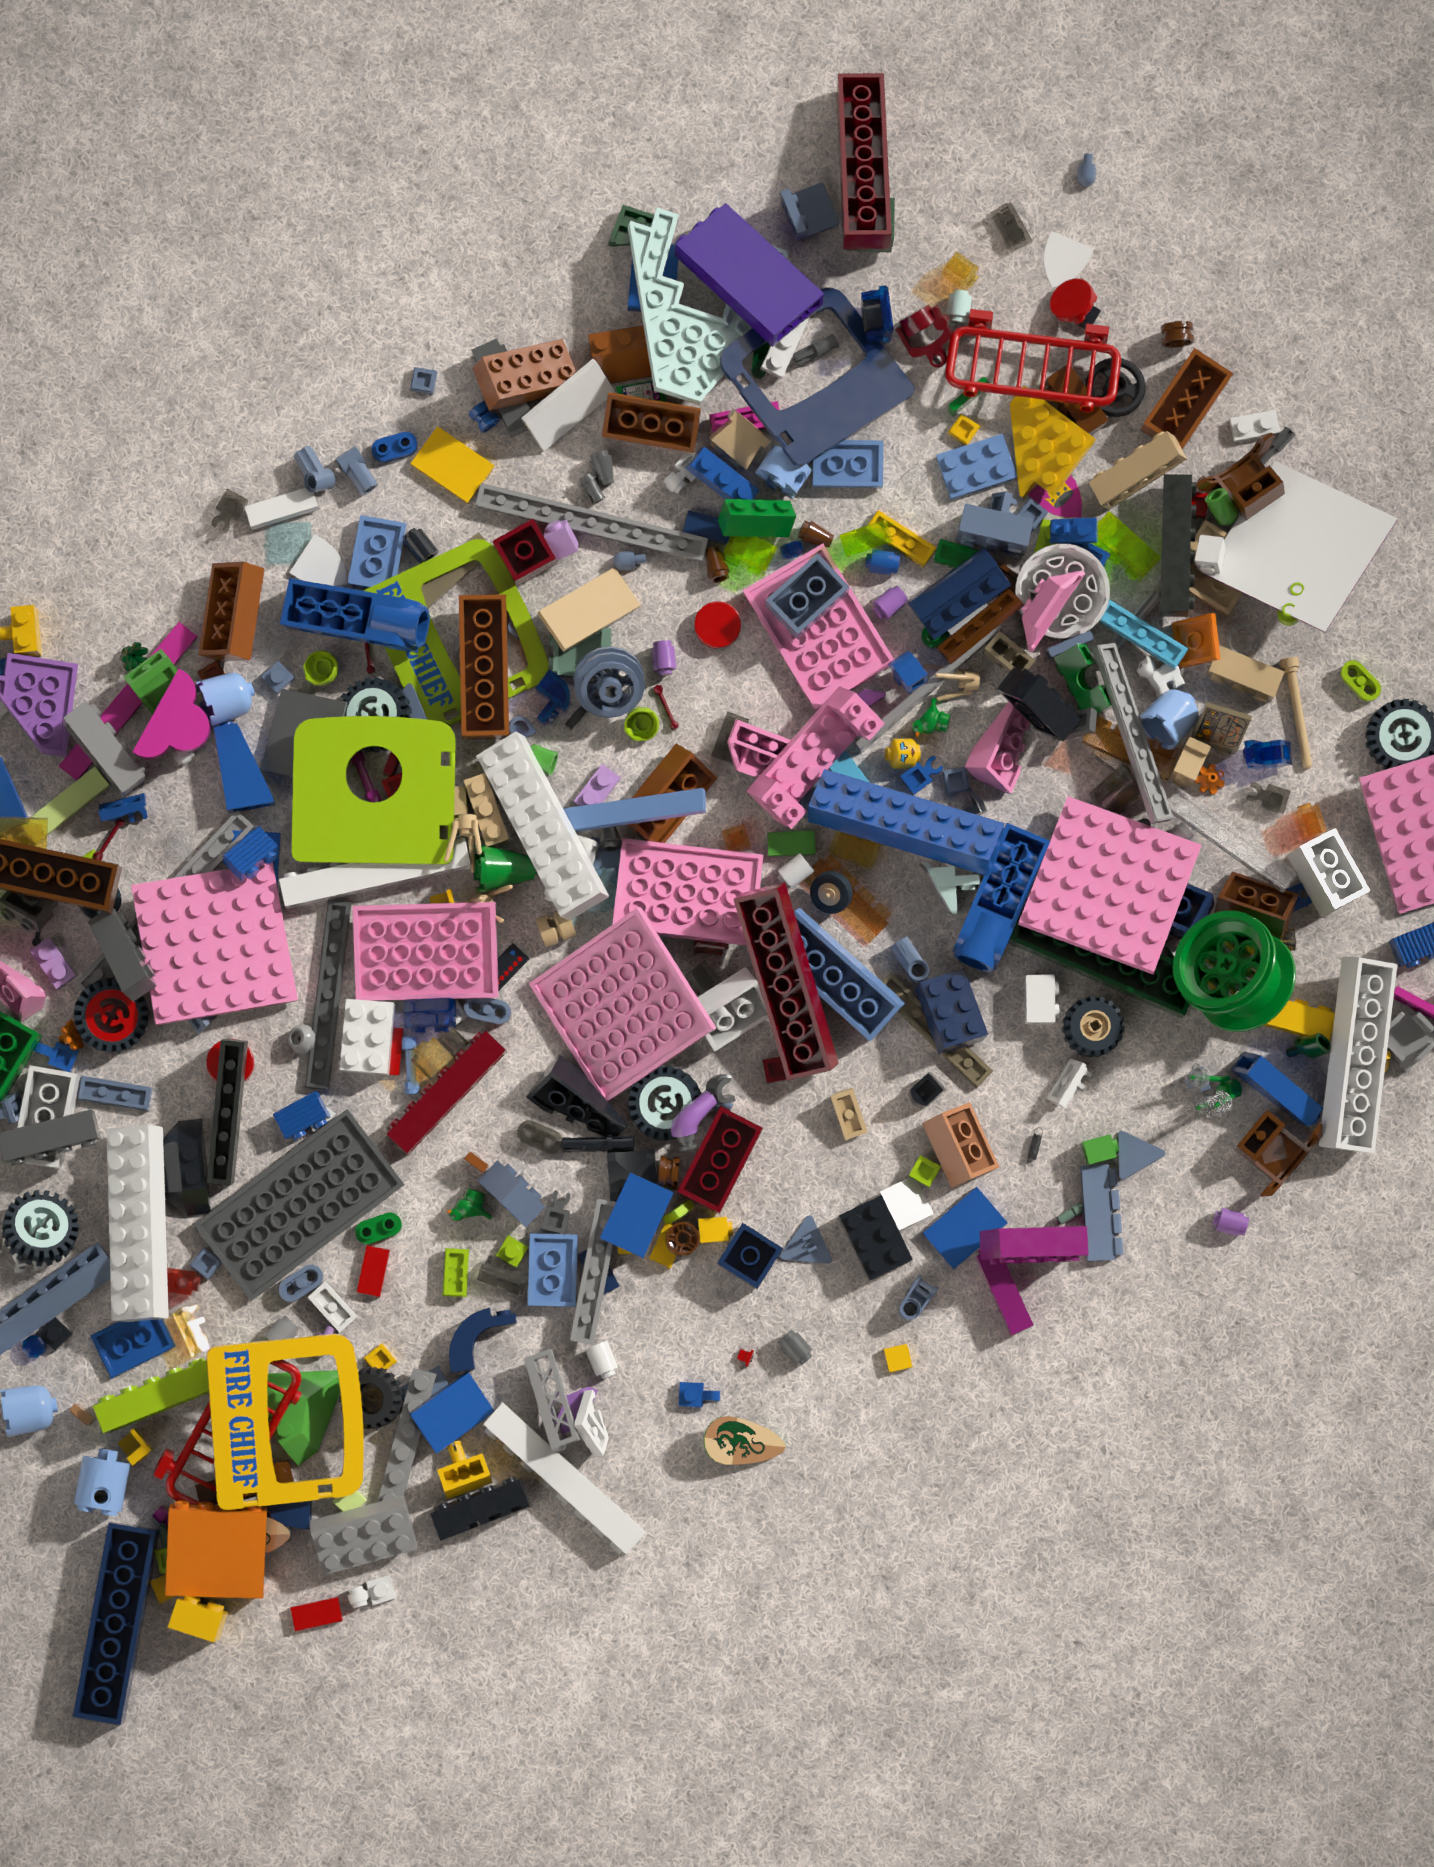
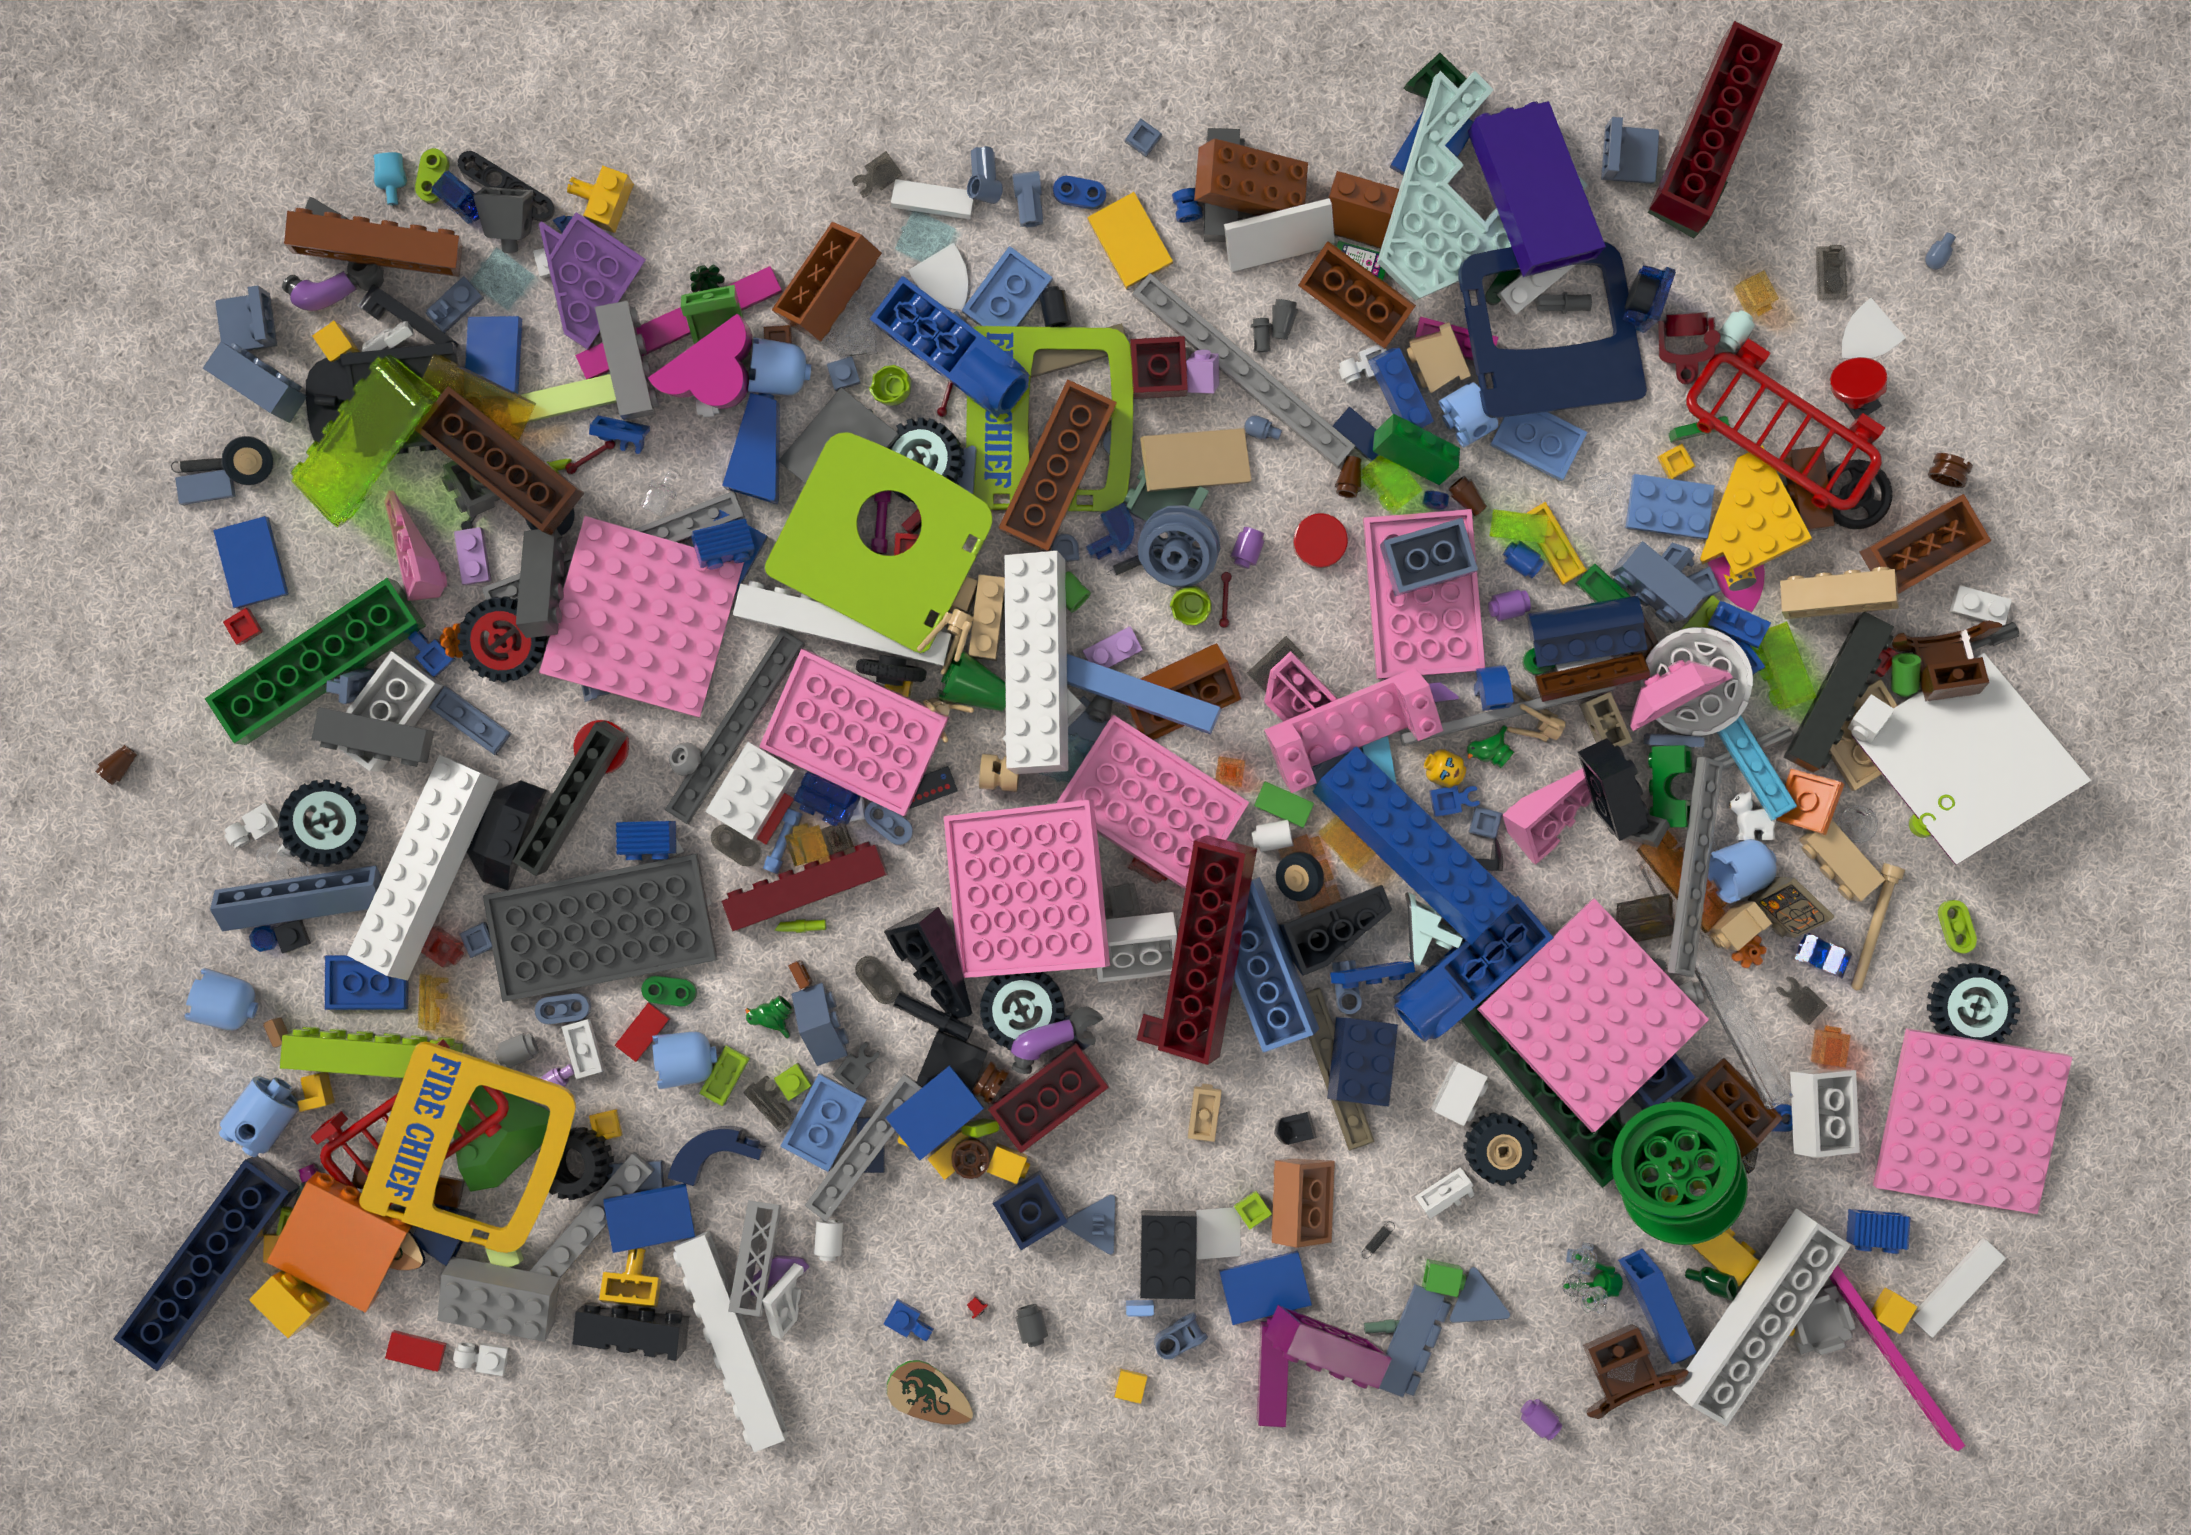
camera: 30 degrees right, 5 degrees up
(376, 1087) = (735, 847): none -> clear smoke plate
(416, 1273) = (682, 1058): none -> light blue cylinder
(431, 888) = (891, 670): none -> black wheel
(458, 1125) = (801, 926): none -> lime piece
(873, 925) = (1329, 930): none -> black wedge
(874, 1291) = (1139, 1308): none -> light blue tile
(925, 939) = (1372, 974): none -> blue plate

